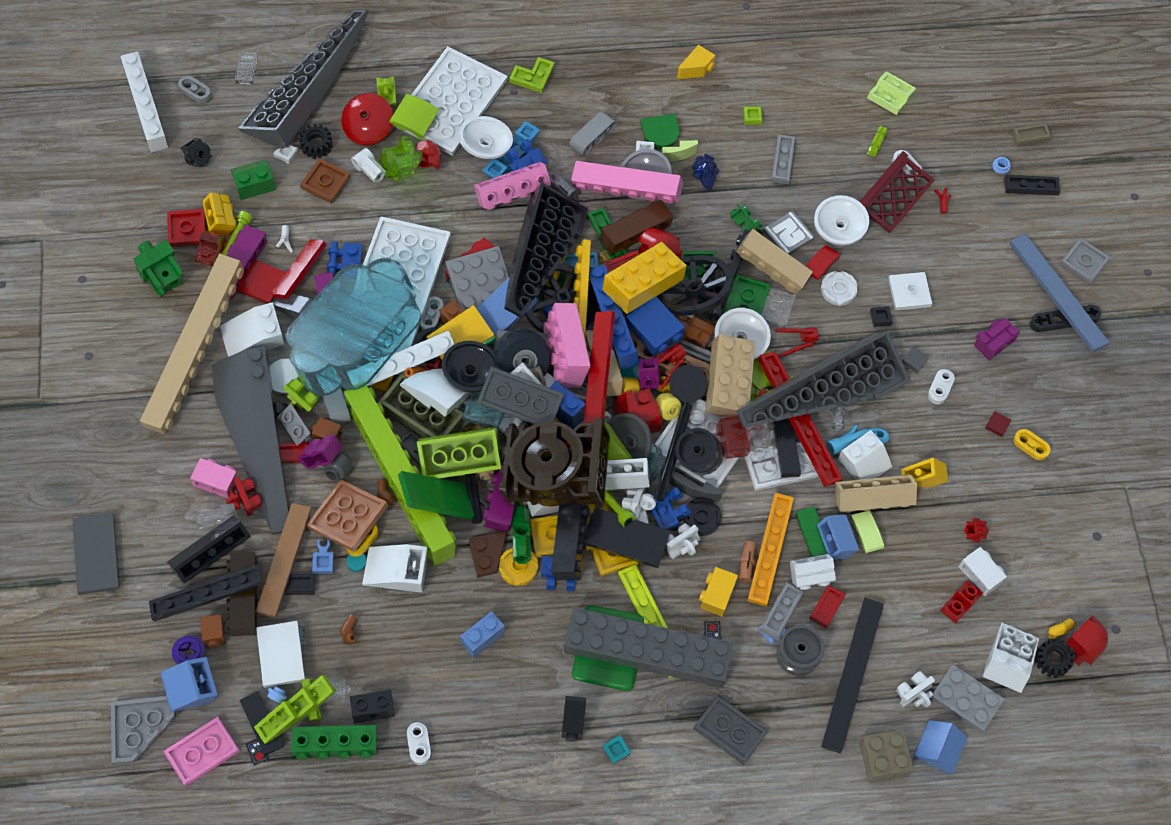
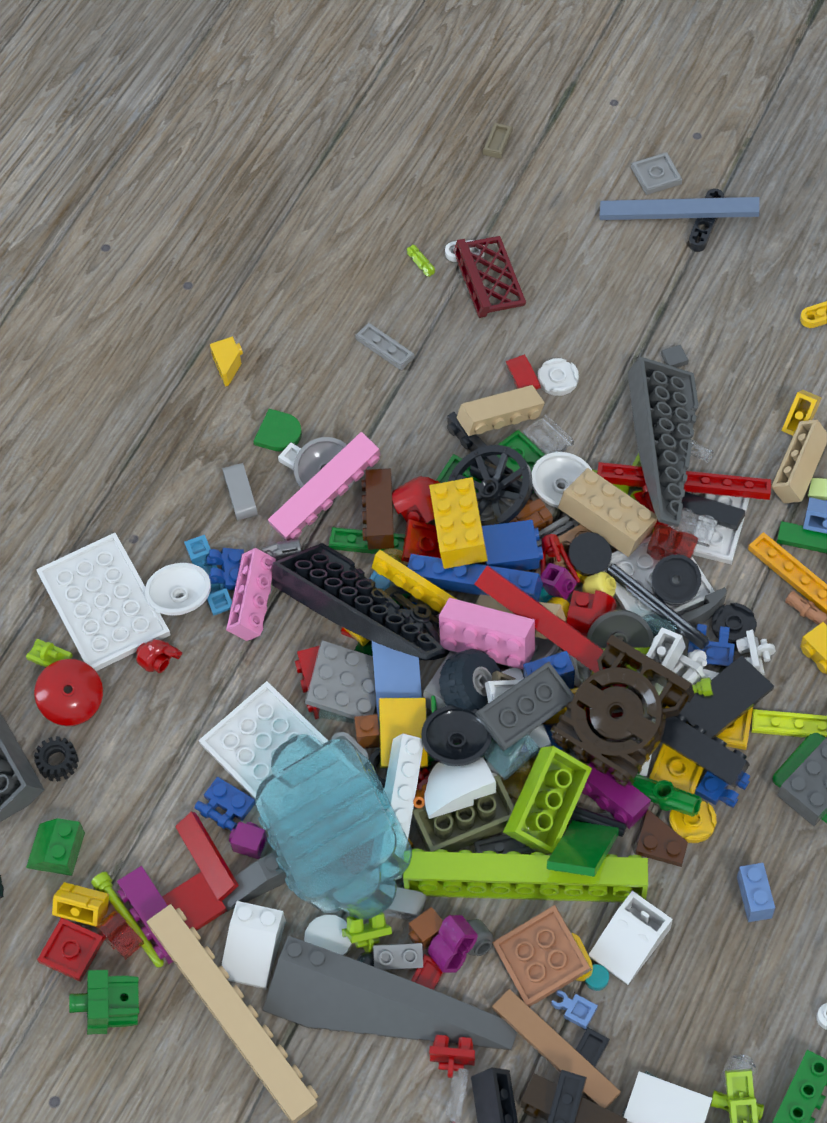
camera: 50 degrees left, 5 degrees down
(214, 477) = (410, 1074): bright pink brick -> none
(285, 238) = (155, 853): white bar -> none
(286, 154) = (48, 798): white tile -> none
(325, 180) = (113, 774): dark orange plate -> none
(347, 630) = (675, 1028): dark orange arm -> none
(366, 162) = (119, 722): white piece -> none
(372, 706) = (779, 1044): black brick -> none
(385, 495) = (534, 908): dark orange arm -> none
(400, 160) = (147, 684): clear neon green brick -> none
(414, 115) = (101, 642): lime slope -> none
(533, 79) = (135, 509): lime plate -> none
(685, 150) = (316, 424): yellowish green slope -> none
(705, 170) = (354, 414): clear blue head -> none
(742, 215) = (426, 411): green hinge -> none
(752, 115) = (317, 345): lime tile -> none
(788, 233) = (470, 384): tile -> none
(807, 335) = (593, 429): red plant -> none
(836, 445) = (725, 451): medium azure plant -> none
(844, 212) = (491, 323): white dish -> none
(865, 457) = (755, 451): white slope -> none
(881, 316) = (611, 359): black tile -> none
(891, 93) = (375, 221): yellowish green slope -> none
(910, 291) = (599, 322): white plate -> none
(941, 385) = (714, 350): white plate -> none
(943, 200) = (520, 243): red bar -> none
(996, 338) = (695, 281): magenta brick -> none
(998, 424) = (782, 329): dark red tile -> none
(1001, 161) = (515, 179): light blue plate -> none
(1032, 185) = (550, 169): black tile -> none

